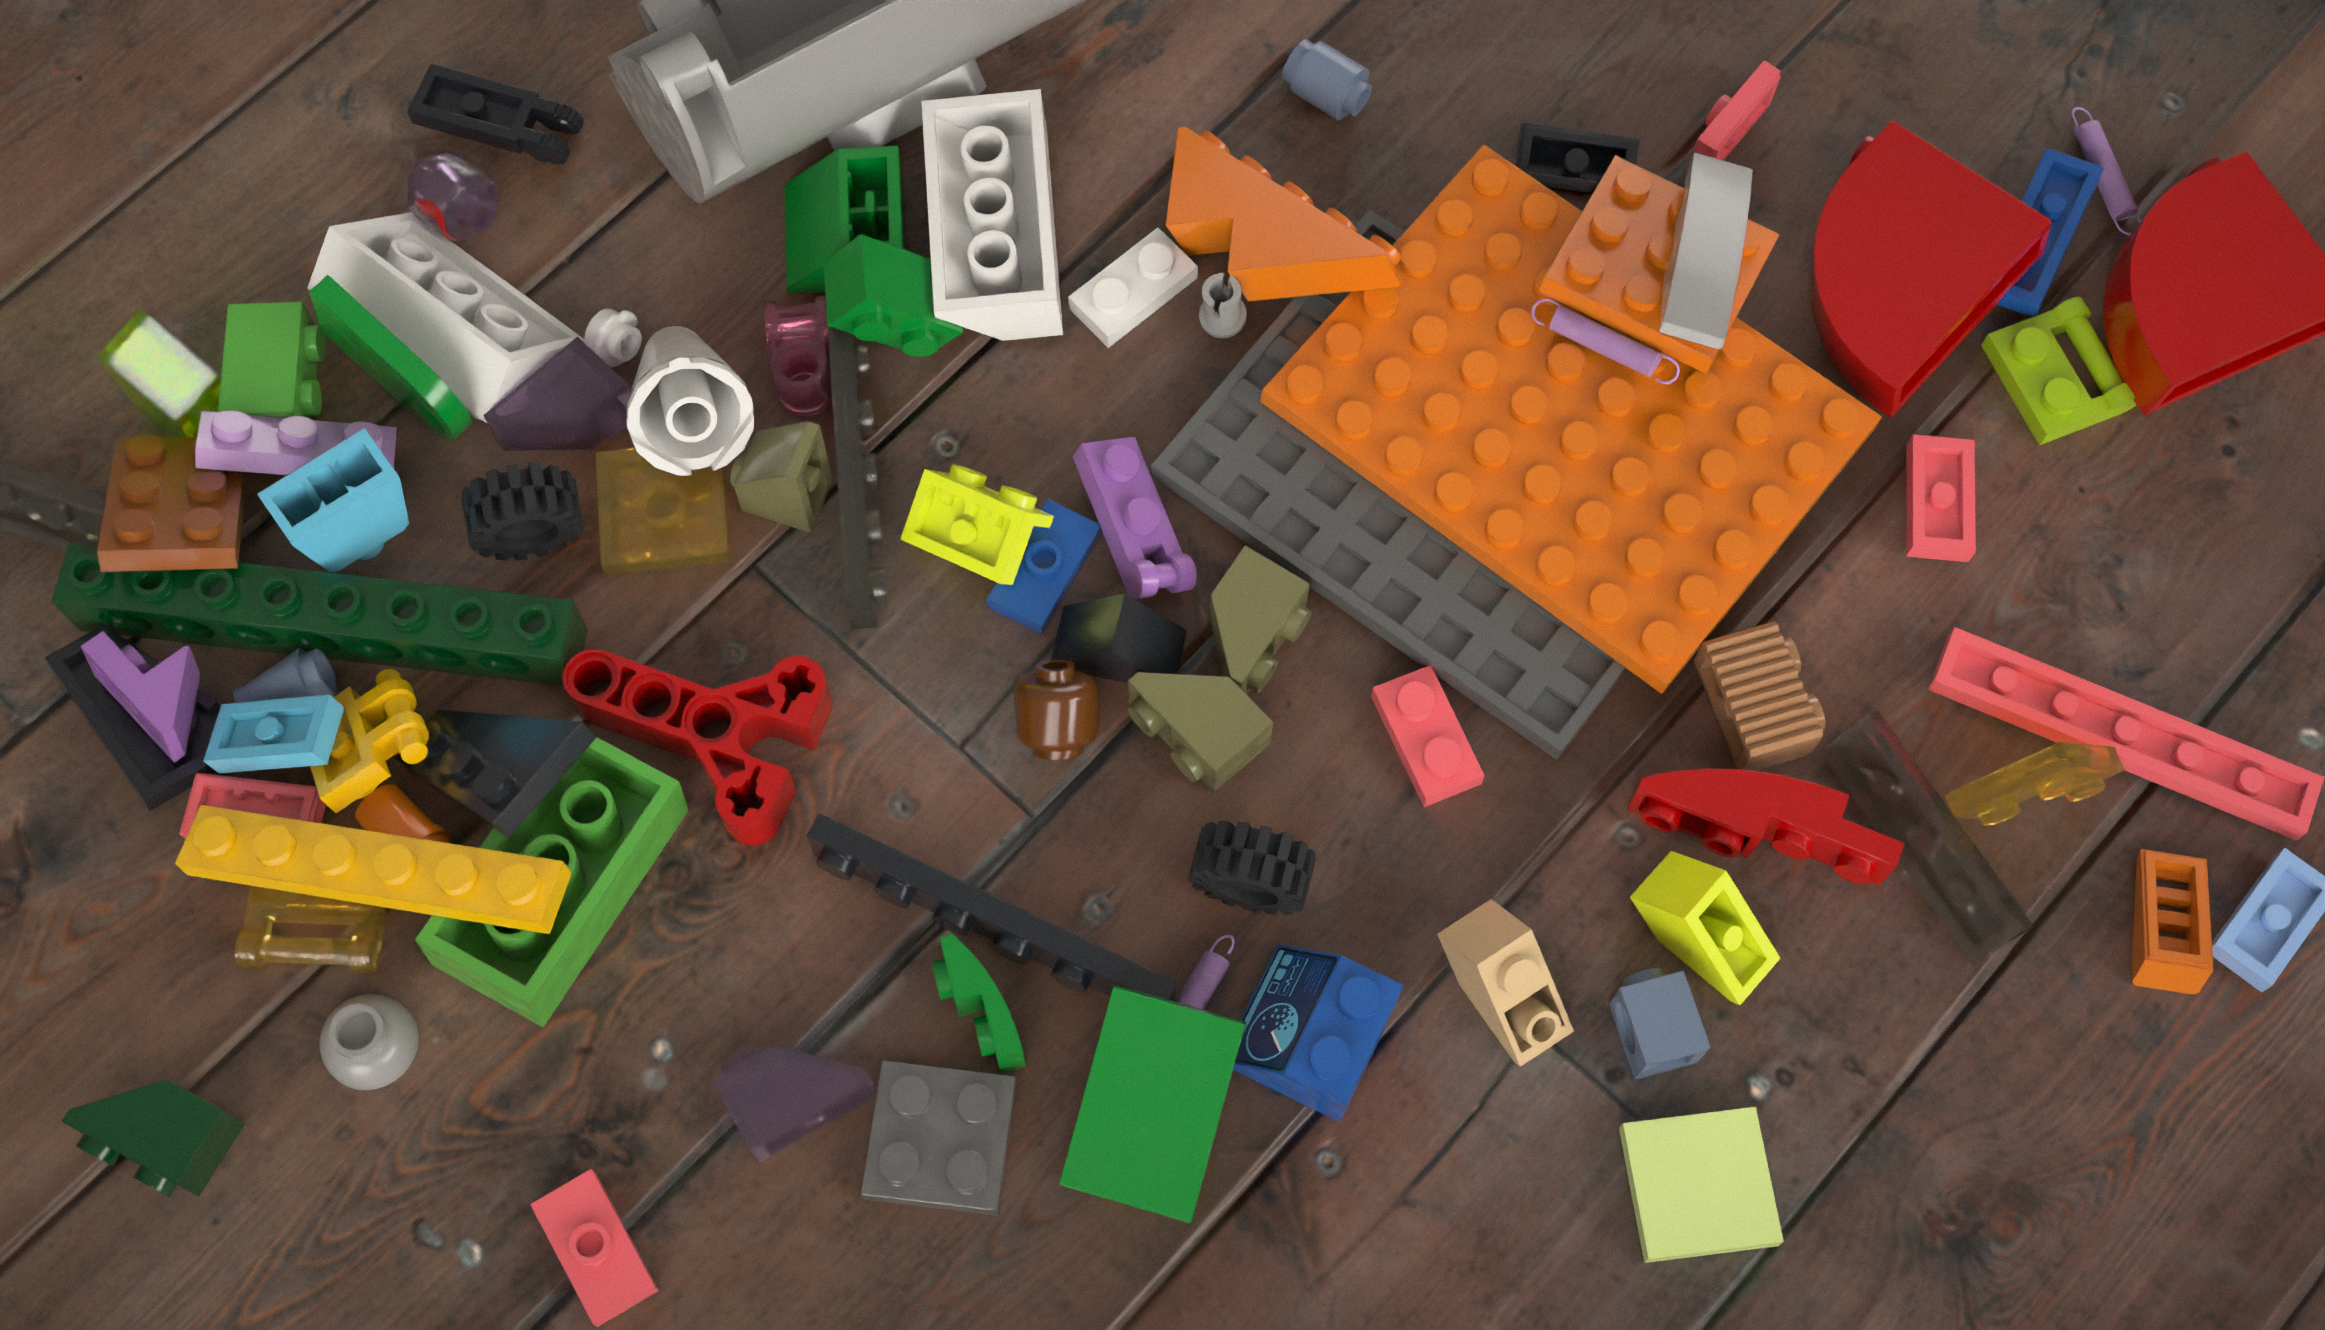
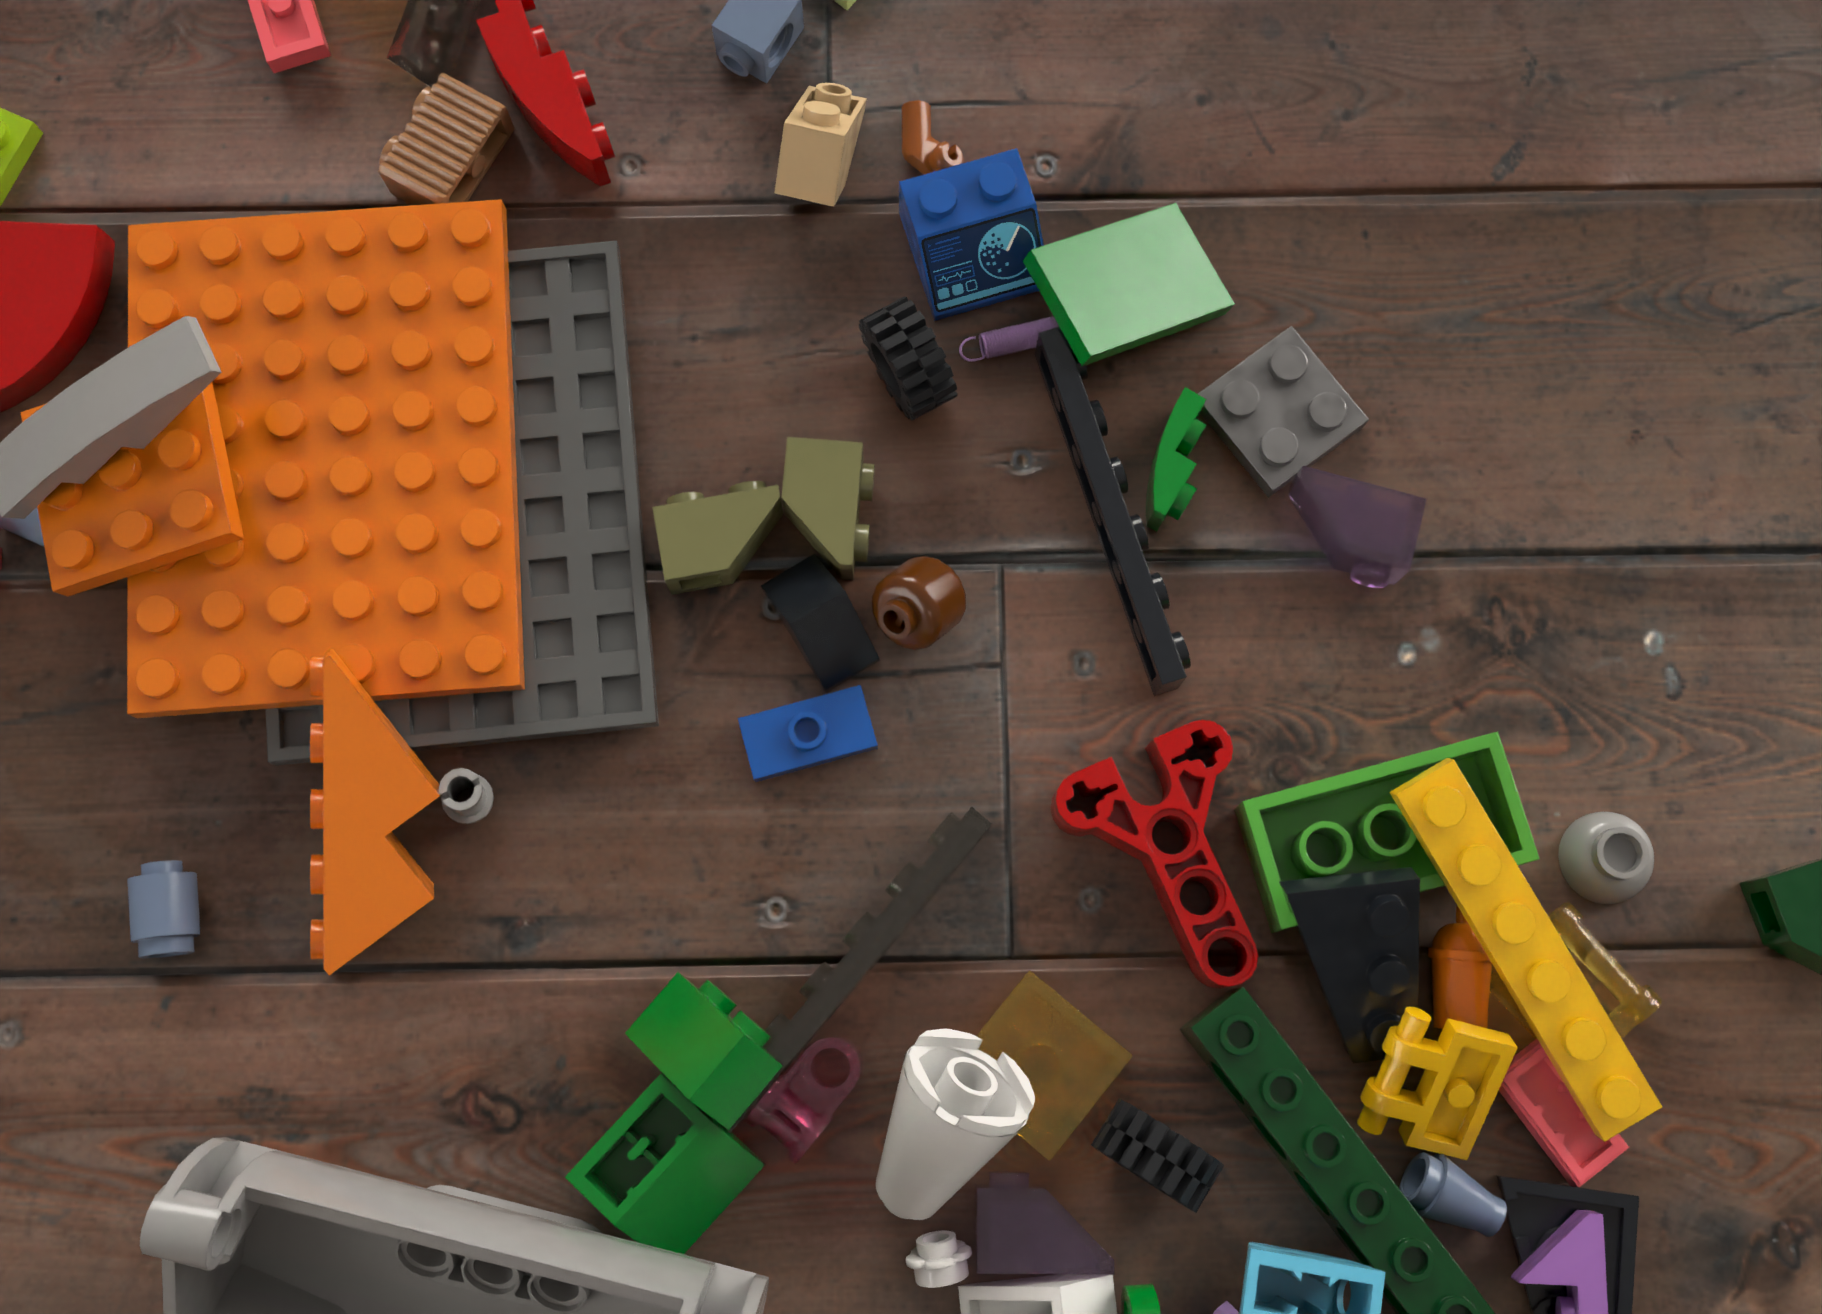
camera: 135 degrees left, 10 degrees up
(274, 734) = (1505, 1145): medium azure plate -> none
(594, 1248) = (1571, 559): coral plate -> none
(784, 475) = (933, 987): olive slope -> none
(972, 523) = (827, 806): neon yellow bracket -> none
(992, 215) = (546, 1052): white slope -> none
(1133, 287) = (504, 893): white plate -> none
(1133, 518) = (710, 700): medium lavender plate -> none
(1427, 736) = (683, 350): coral plate -> none
(1430, 1065) = (917, 144): none -> dark orange arm
(1570, 156) = (66, 657): black slope -> none
(1605, 341) = (244, 456): lavender piece -> none
(1706, 924) = (656, 56): neon yellow slope -> none
(1940, 498) = (158, 154): coral plate -> none

